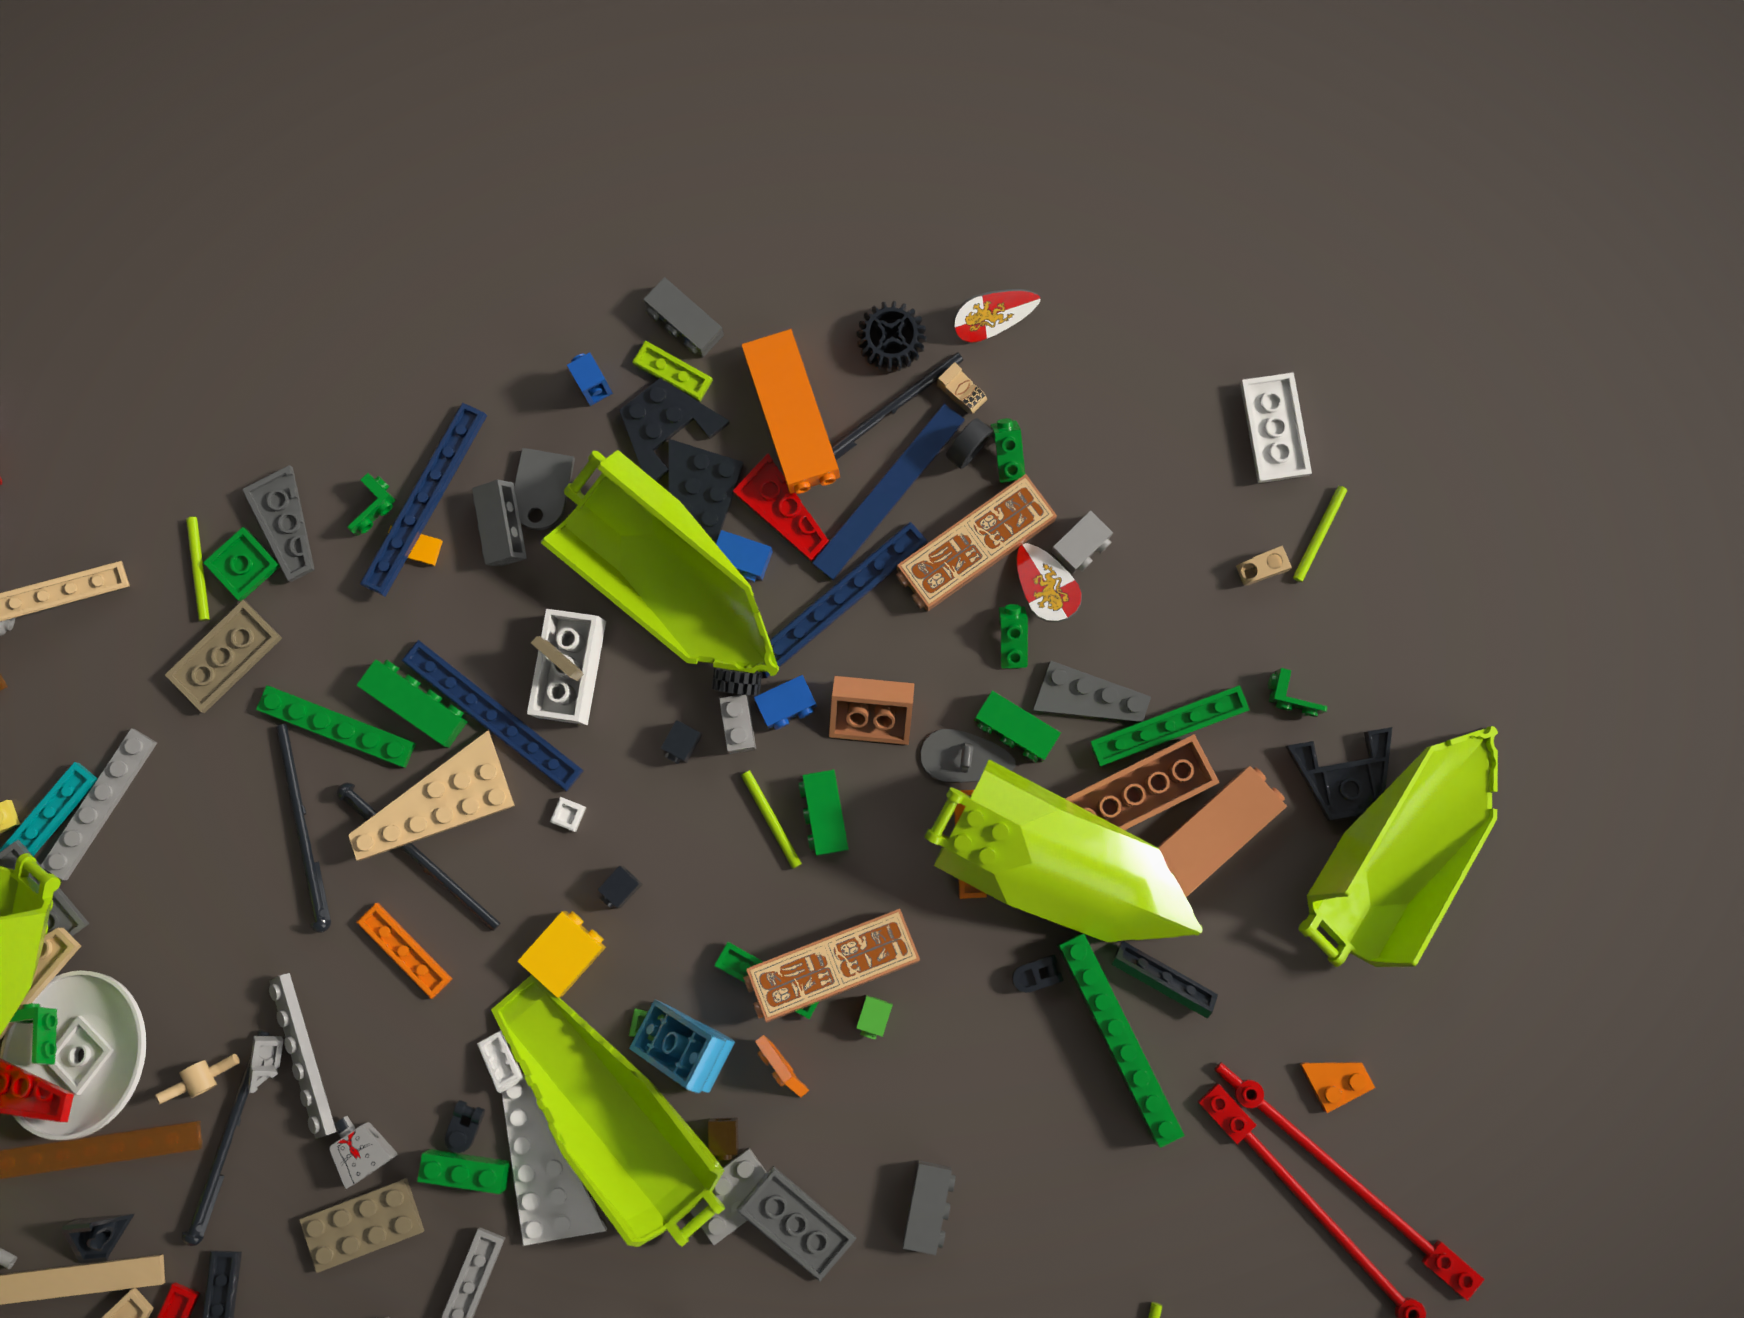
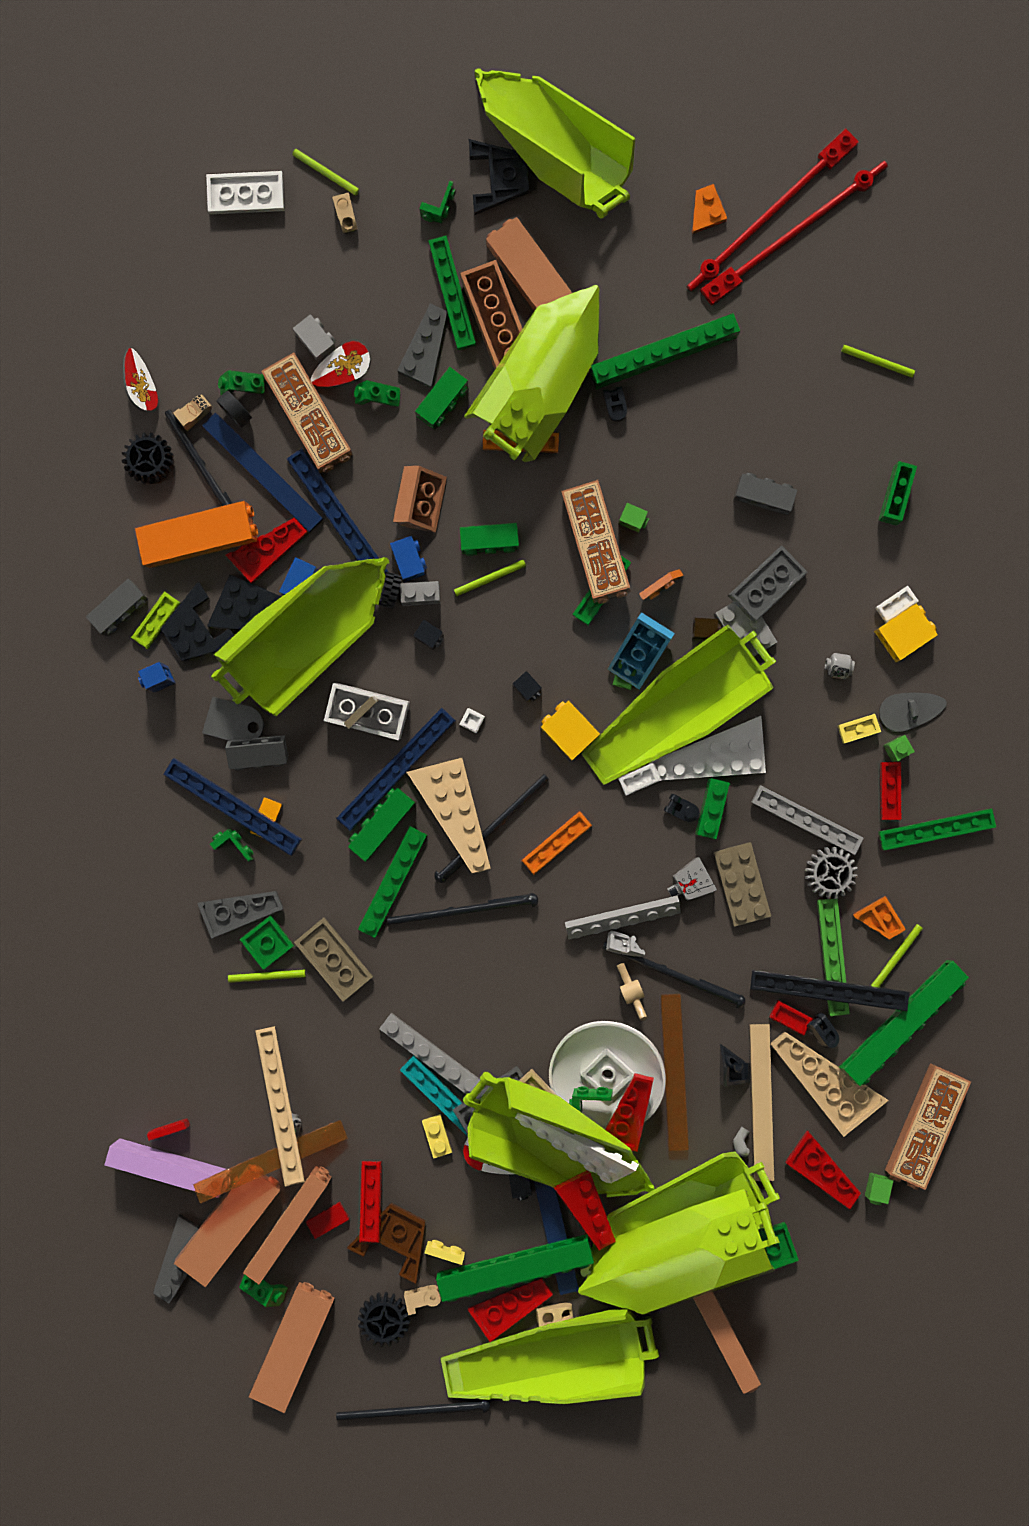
camera: 85 degrees left, 5 degrees up
(960, 756) = (459, 440): dark grey shield -> none
(1165, 979) = (627, 316): black plate -> none

